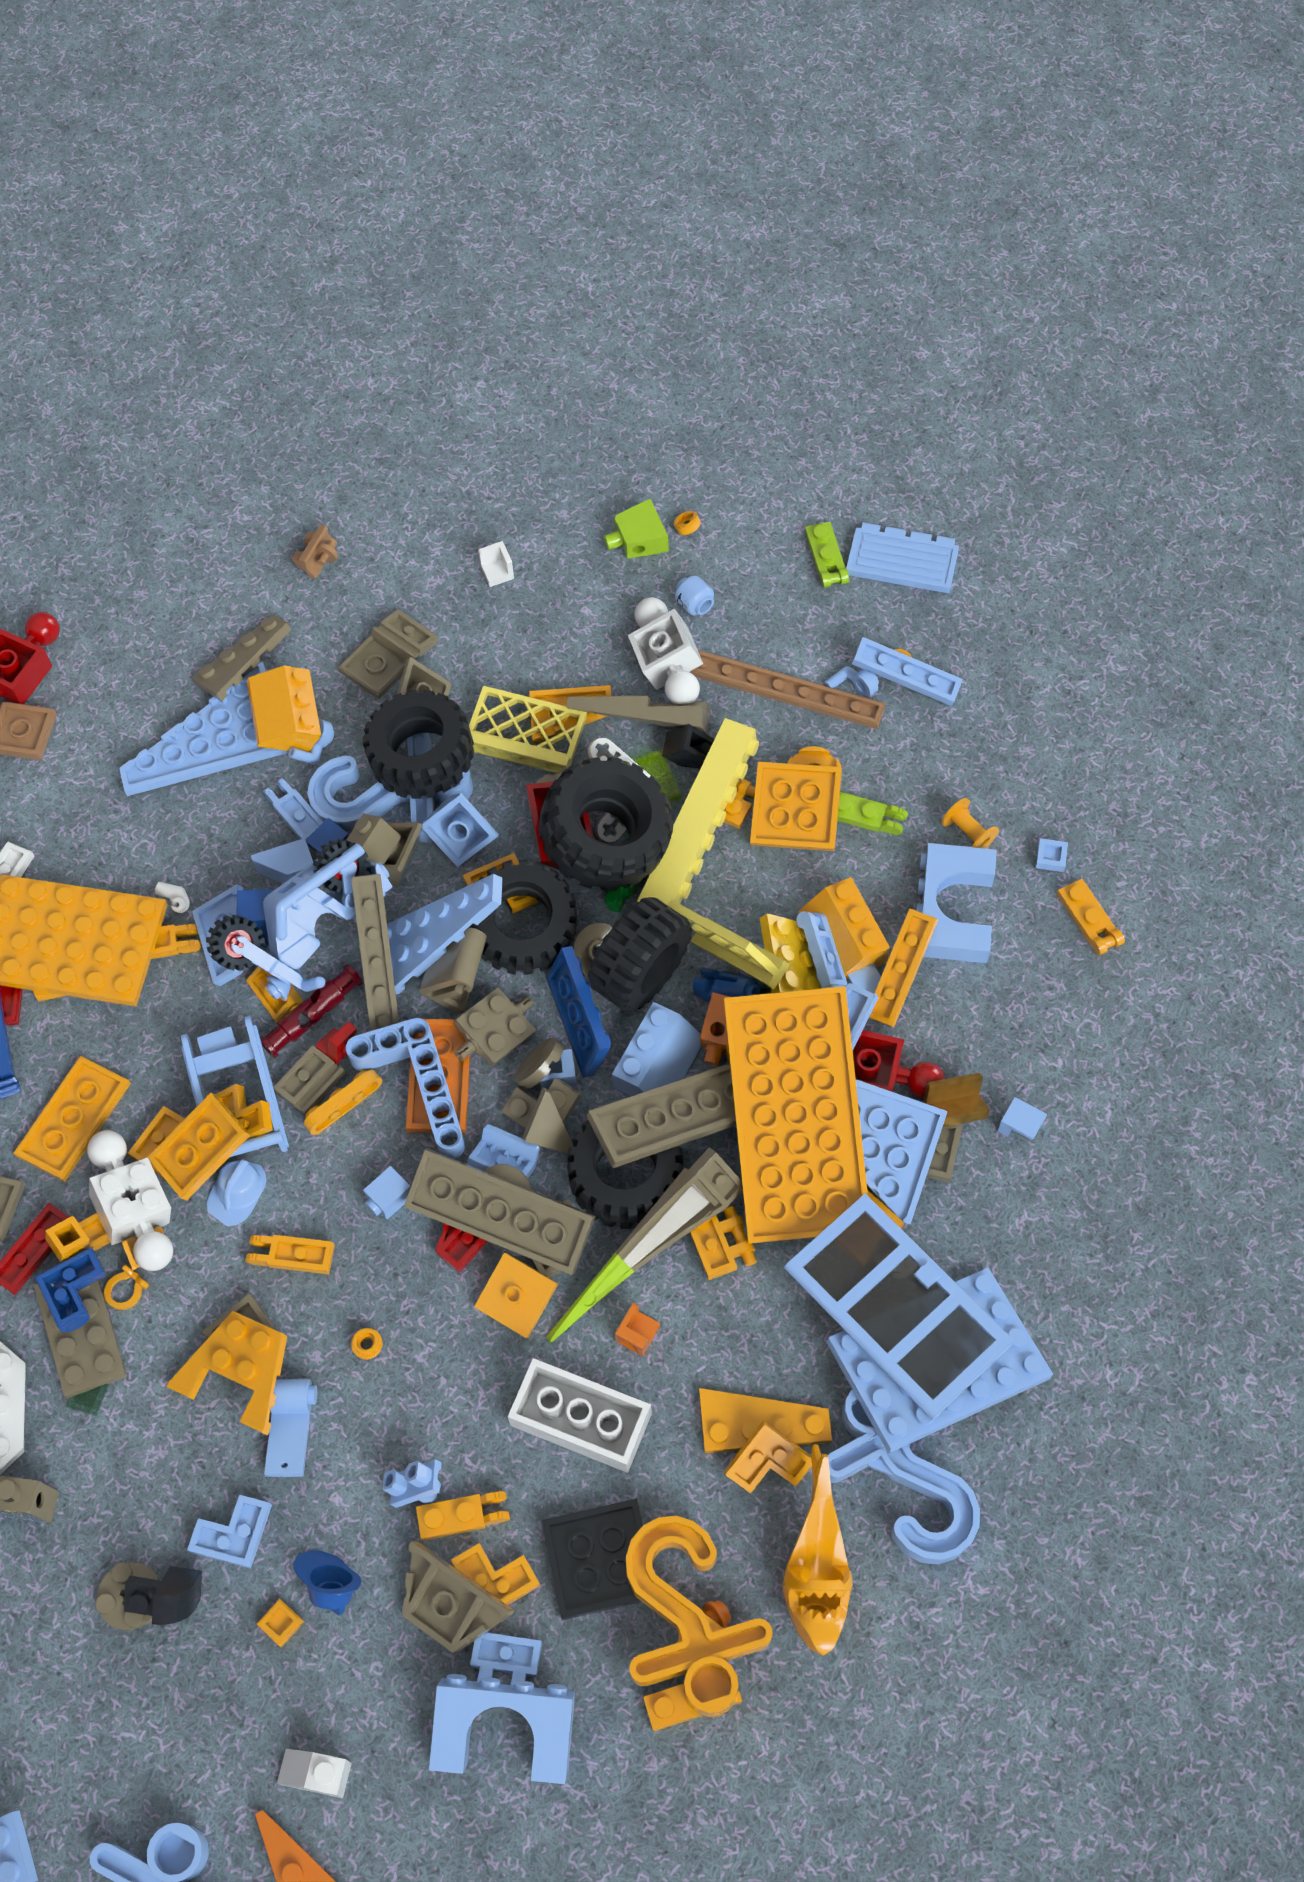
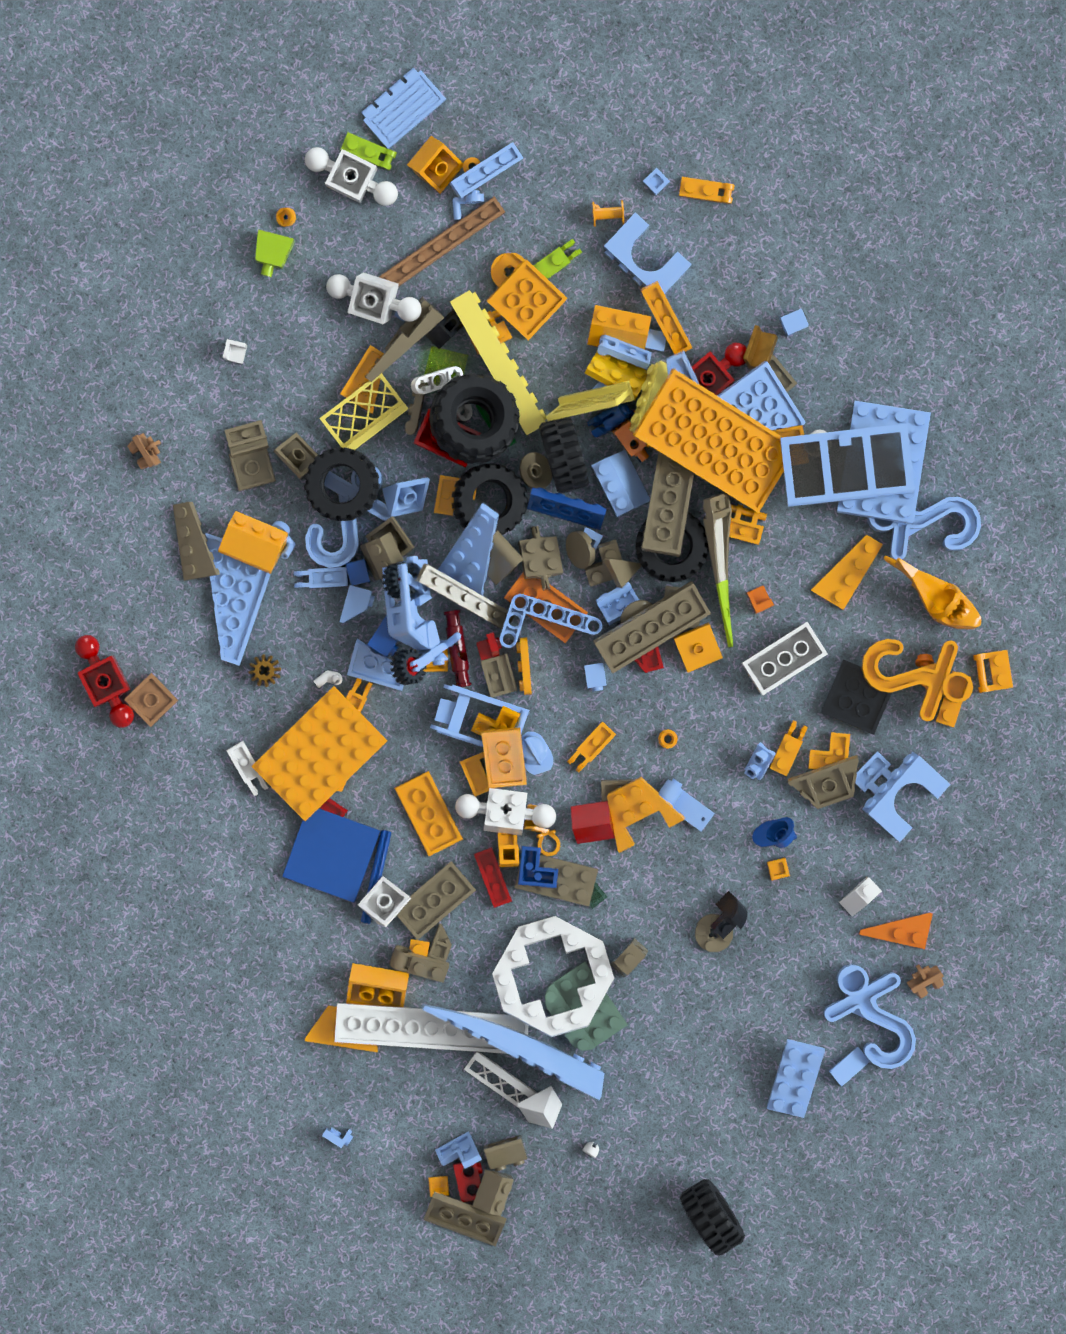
camera: 60 degrees left, 25 degrees up
(136, 821) = (266, 664): none -> pearl gold gear
(183, 1320) = (592, 822): none -> red slope
(236, 1542) = (724, 866): light blue plate -> none
(694, 595) = (343, 251): light blue head -> none
(764, 1451) = (866, 582): light orange plate -> none
(782, 1738) = (999, 671): none -> light orange plate
(784, 550) = (318, 160): none -> white brick
(870, 618) = (435, 164): none -> light orange slope

